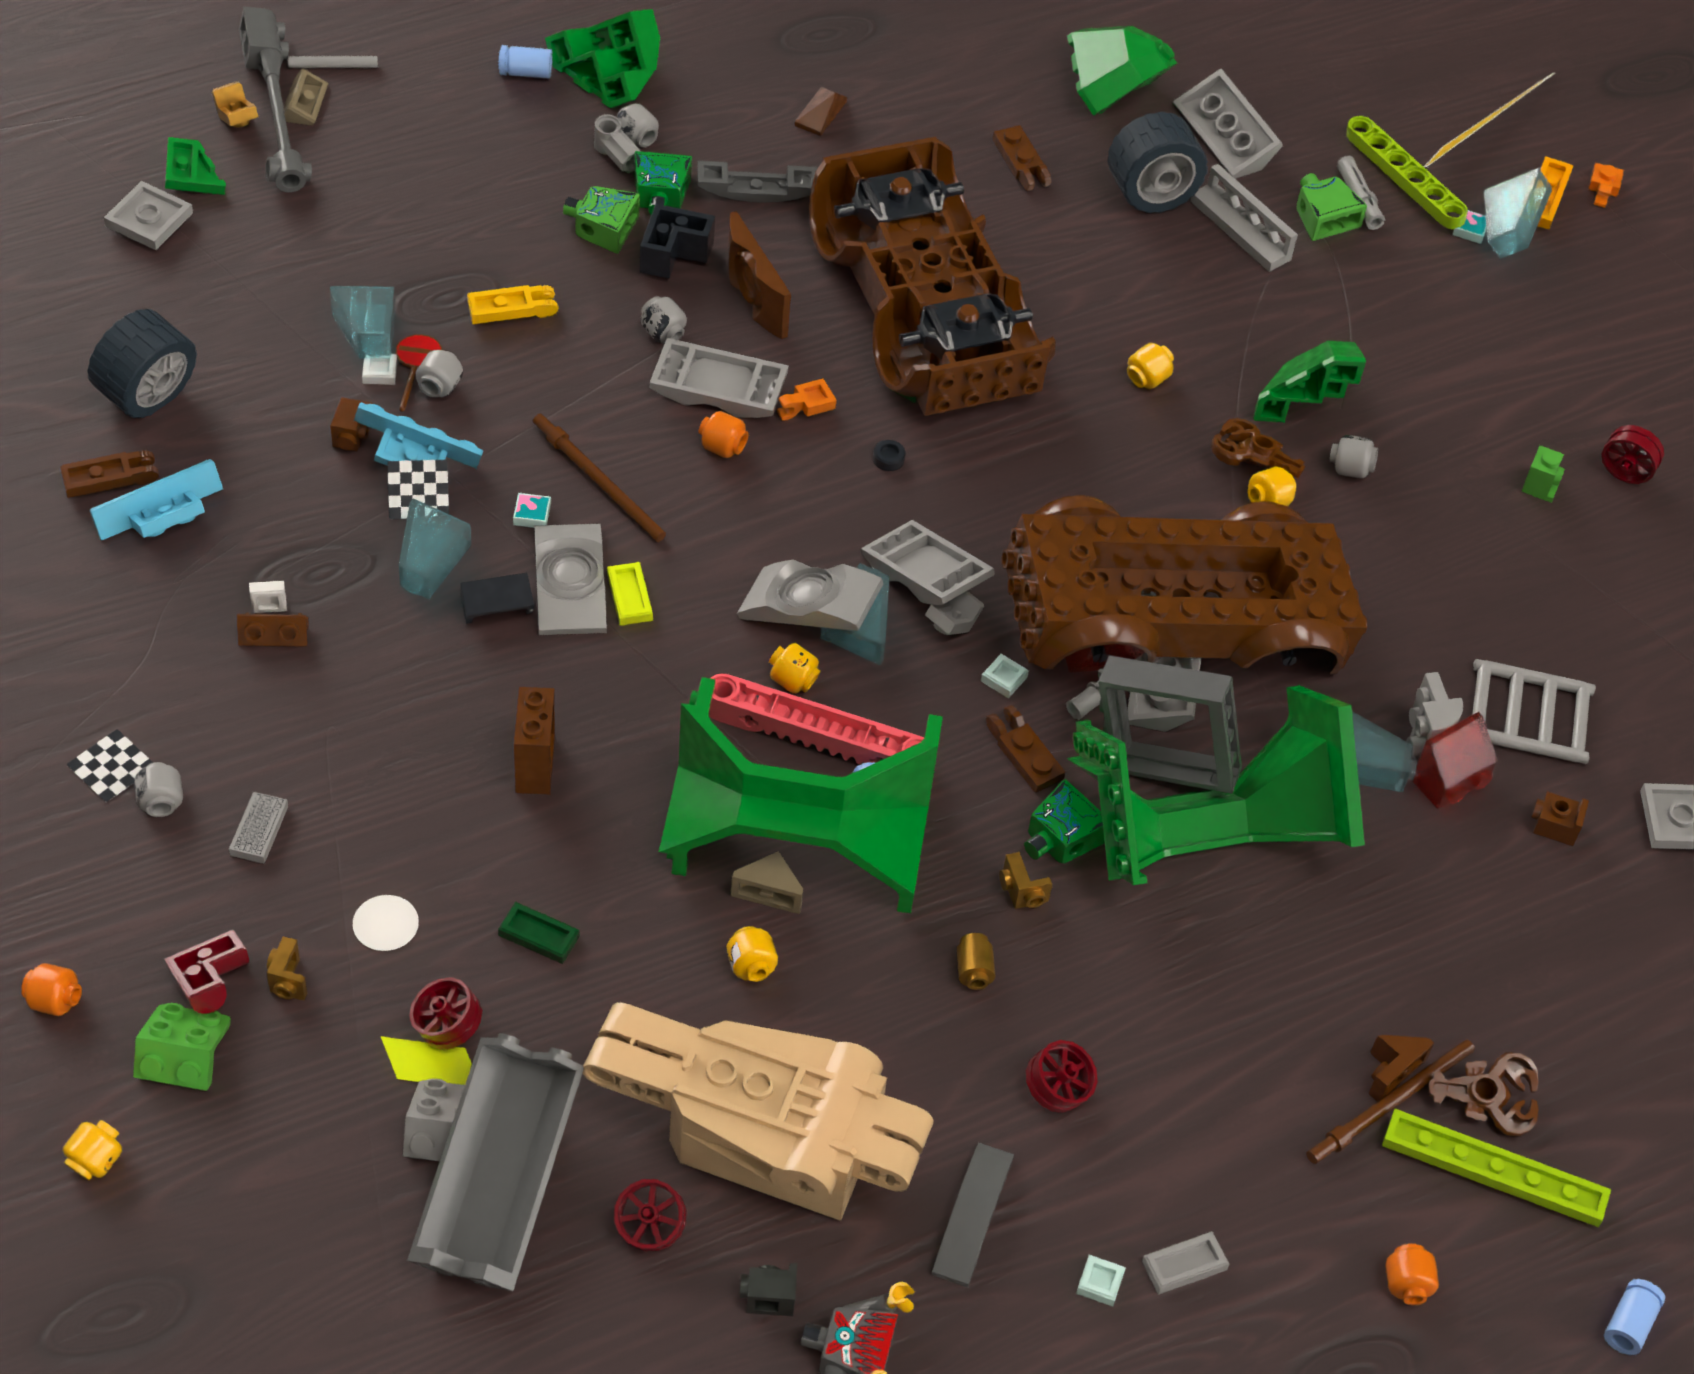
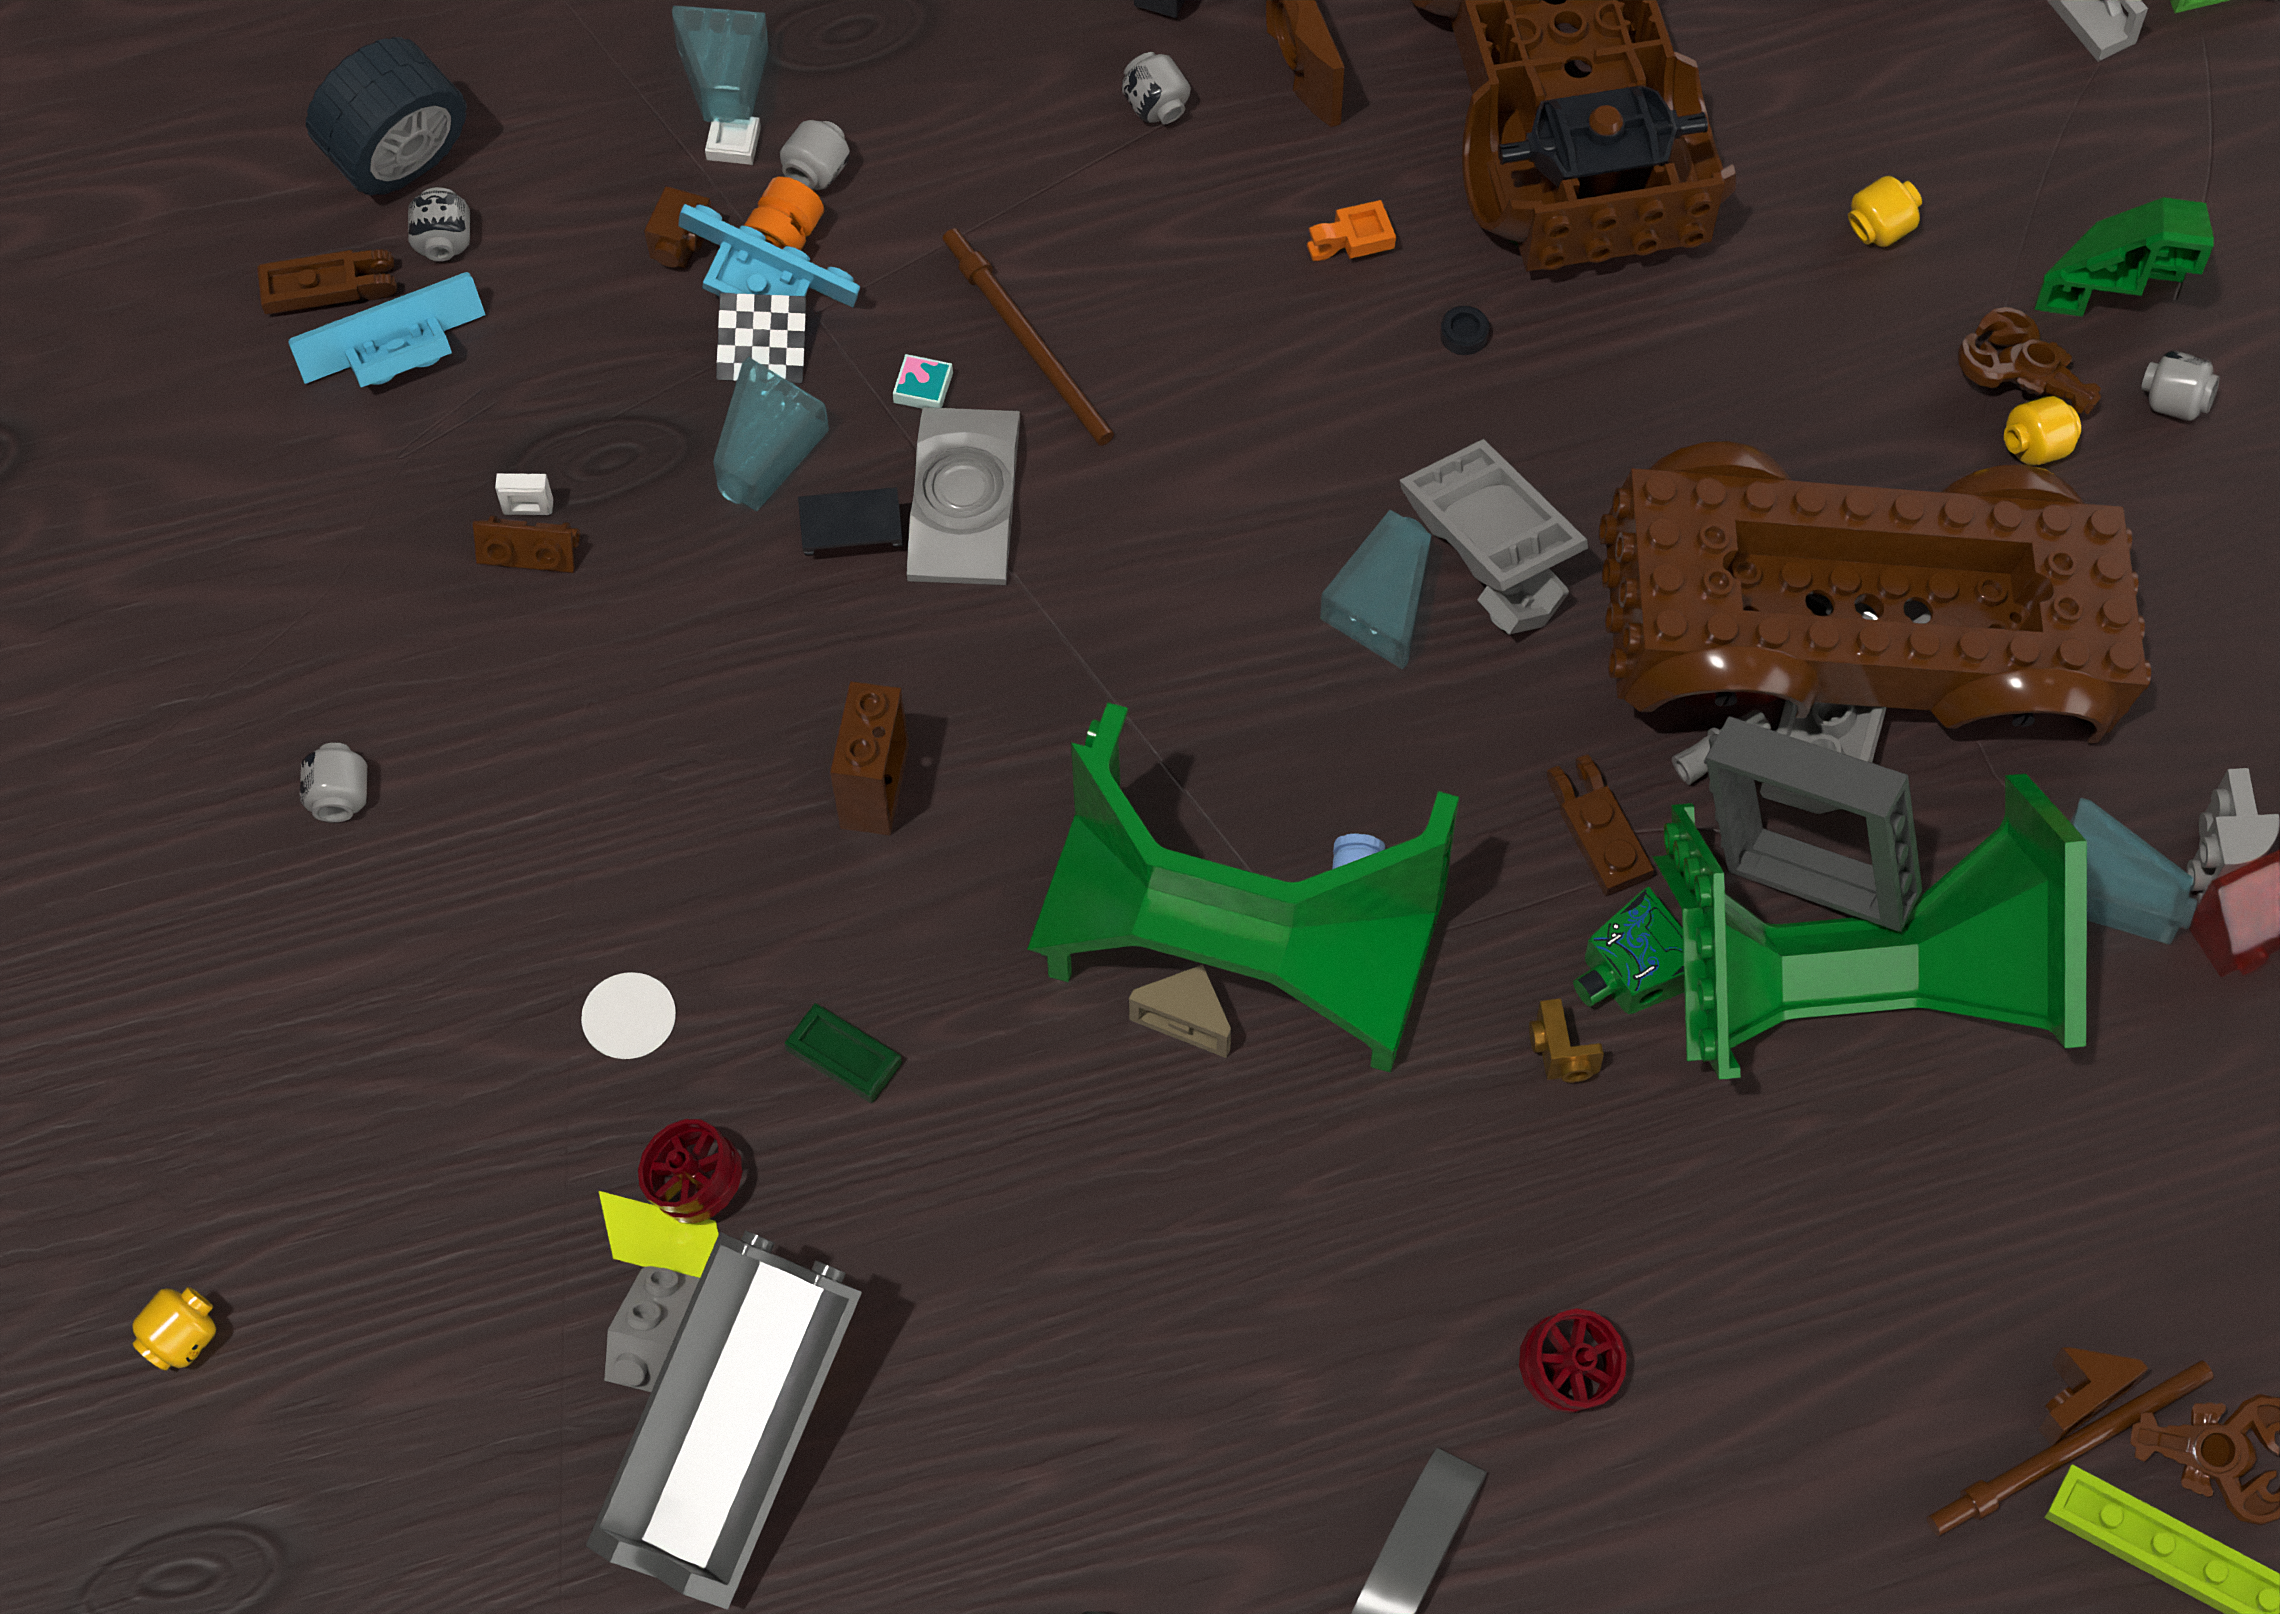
camera: 15 degrees right, 10 degrees up
(51, 989) = (148, 1077): orange head -> none
(110, 765) = (274, 735): sticker -> none
(179, 1046) = (312, 1179): bright green bracket -> none
(184, 432) = (438, 222): none -> light grey head
(200, 967) = (353, 1063): dark red brick -> none
(258, 827) = (467, 852): light grey tile -> none
(281, 970) = (469, 1076): pearl gold bracket -> none
(411, 353) = (780, 117): piece -> none
(427, 406) = (786, 213): none -> orange wheel
(511, 303) = (937, 46): yellow hinge -> none
(629, 593) = (1047, 526): neon yellow tile -> none
(650, 1215) = (938, 1514): dark red wheel -> none
(718, 378) = (1225, 190): light grey slope -> none
(723, 434) = (1219, 281): orange head -> none
(752, 952) = (1143, 1120): yellow head -> none
(765, 1105) = (1121, 1373): tan piece -> none
(794, 668) = (1270, 669): yellow head -> none
(804, 721) = (1284, 760): coral gear -> none
(811, 595) = (1311, 557): light grey slope -> none
(975, 961) = (1472, 1163): pearl gold brick -> none
(1004, 675) = (1586, 703): light aqua tile -> none

